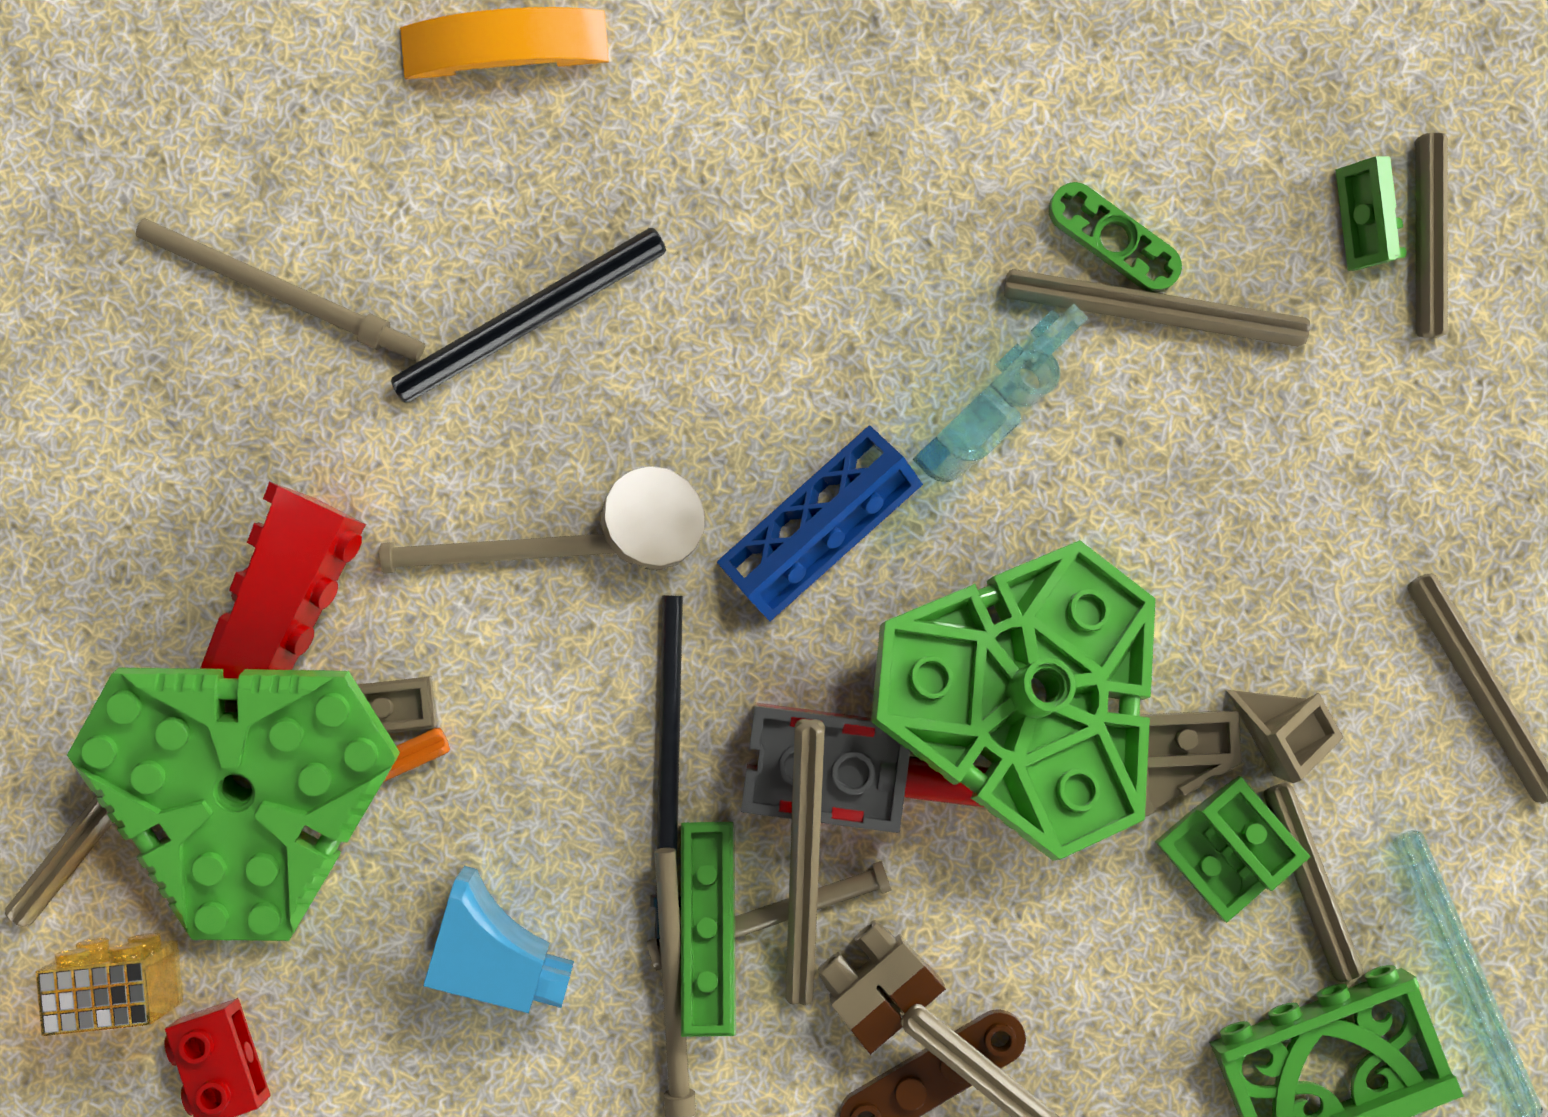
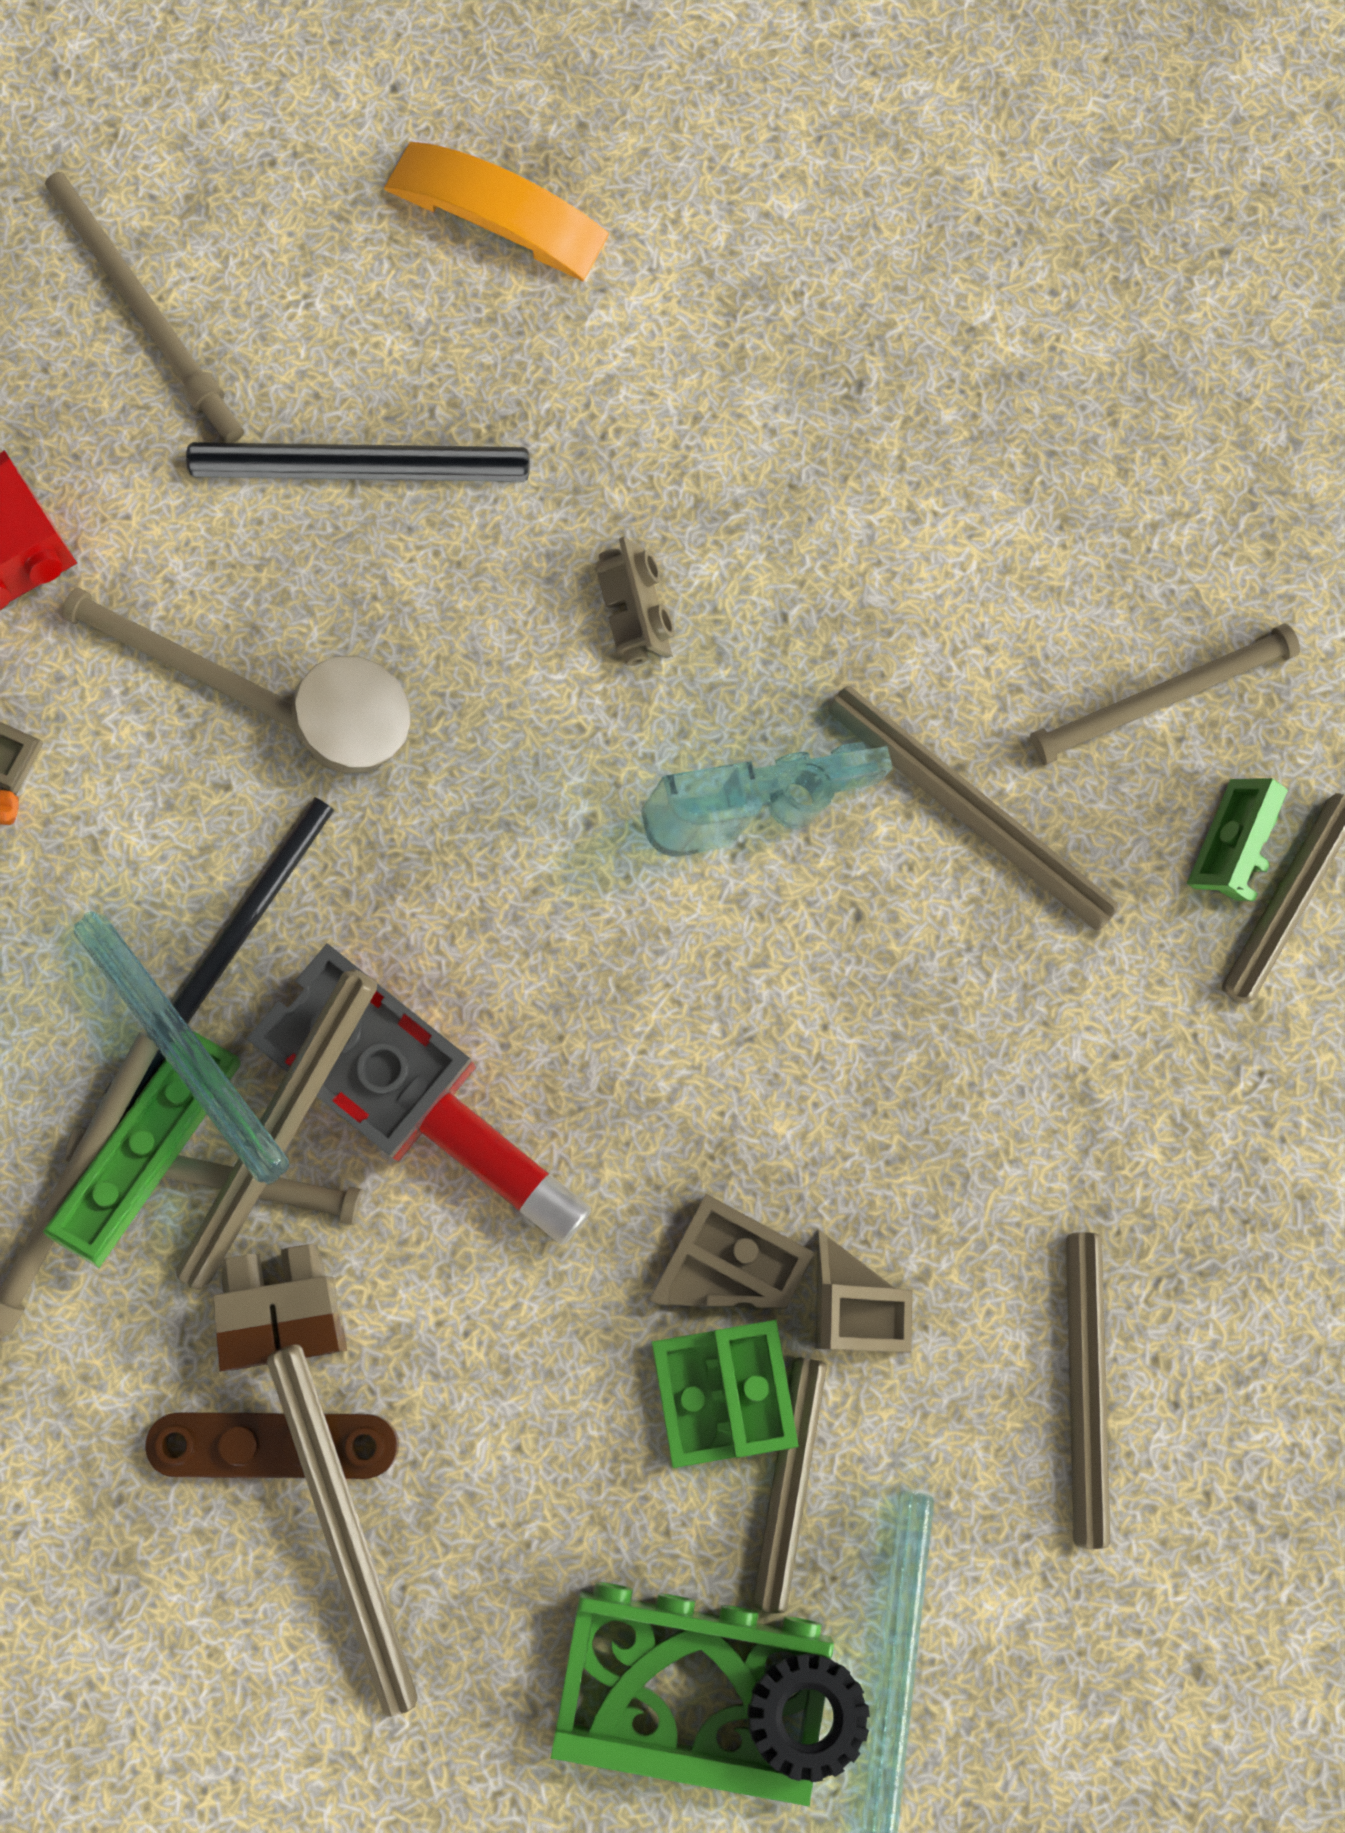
camera: 30 degrees right, 10 degrees down
(694, 845) = (182, 1049): none -> clear light blue axle
(799, 285) = (631, 580): none -> dark tan hinge
(825, 528) = (511, 825): blue fence -> none
(963, 689) = (596, 1182): bright green plate -> none
(1134, 230) = (980, 694): bright green beam -> none
(1315, 39) = (1281, 643): none -> dark tan bar
(1463, 1046) = (849, 1717): none -> black tyre

